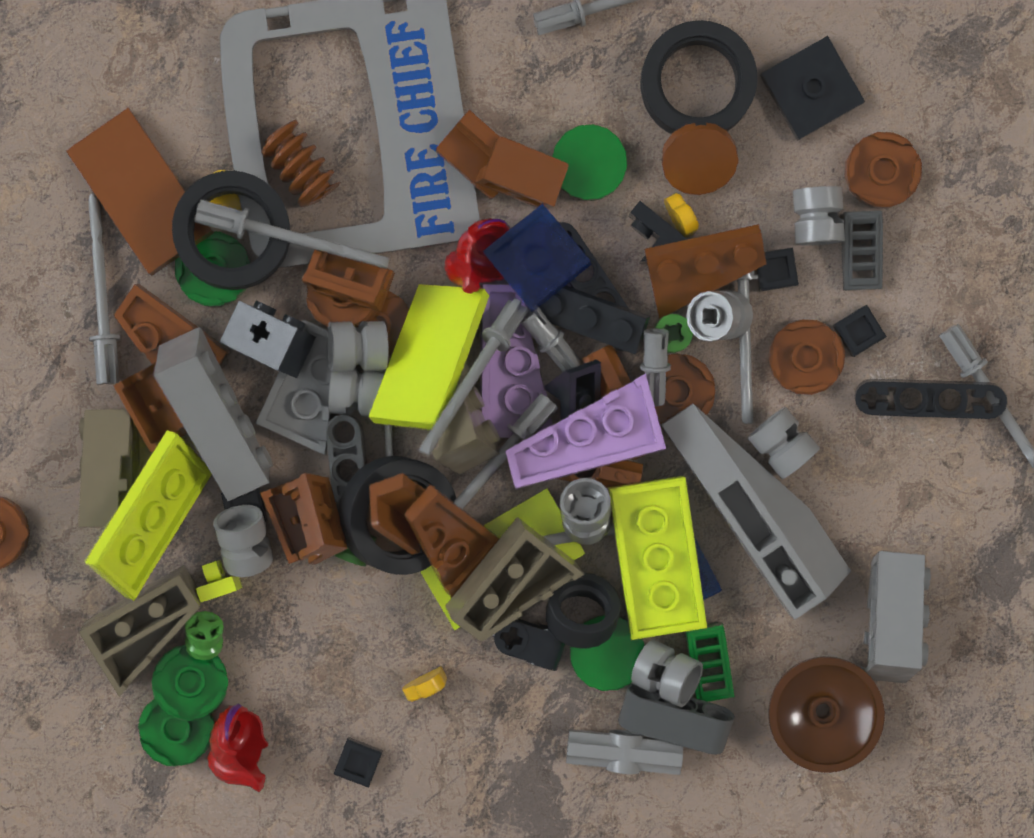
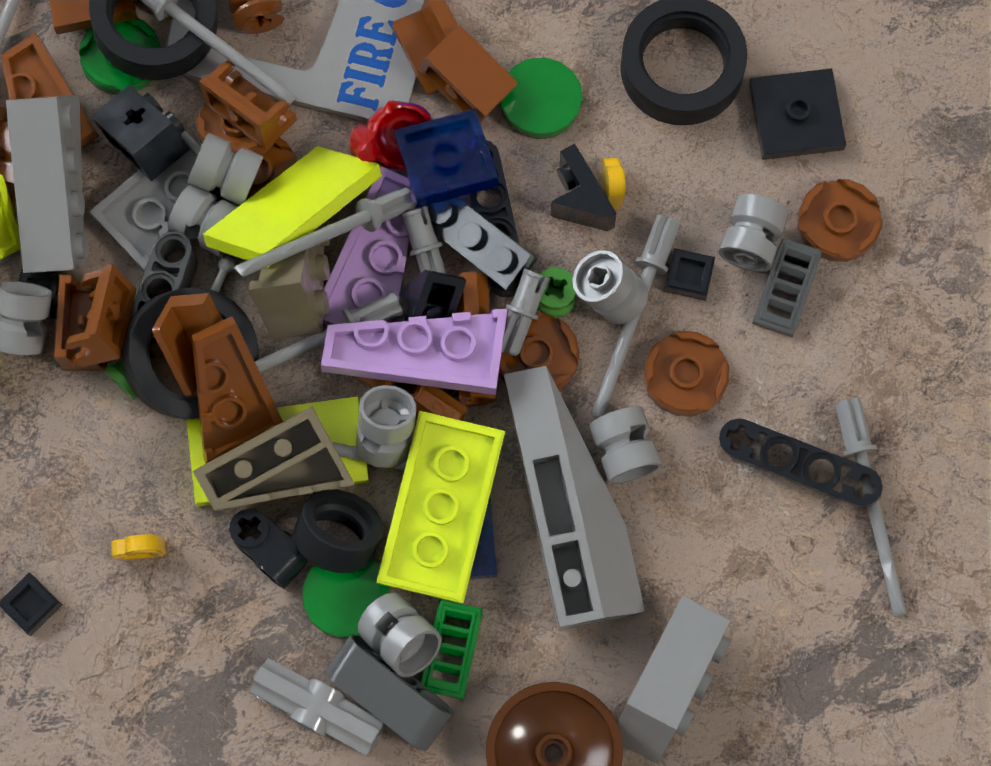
camera: 20 degrees right, 15 degrees down
(699, 158) = (653, 130): dark orange tile -> none
(702, 265) = (614, 224): dark orange wing -> none
(859, 330) = (753, 368): black tile -> none

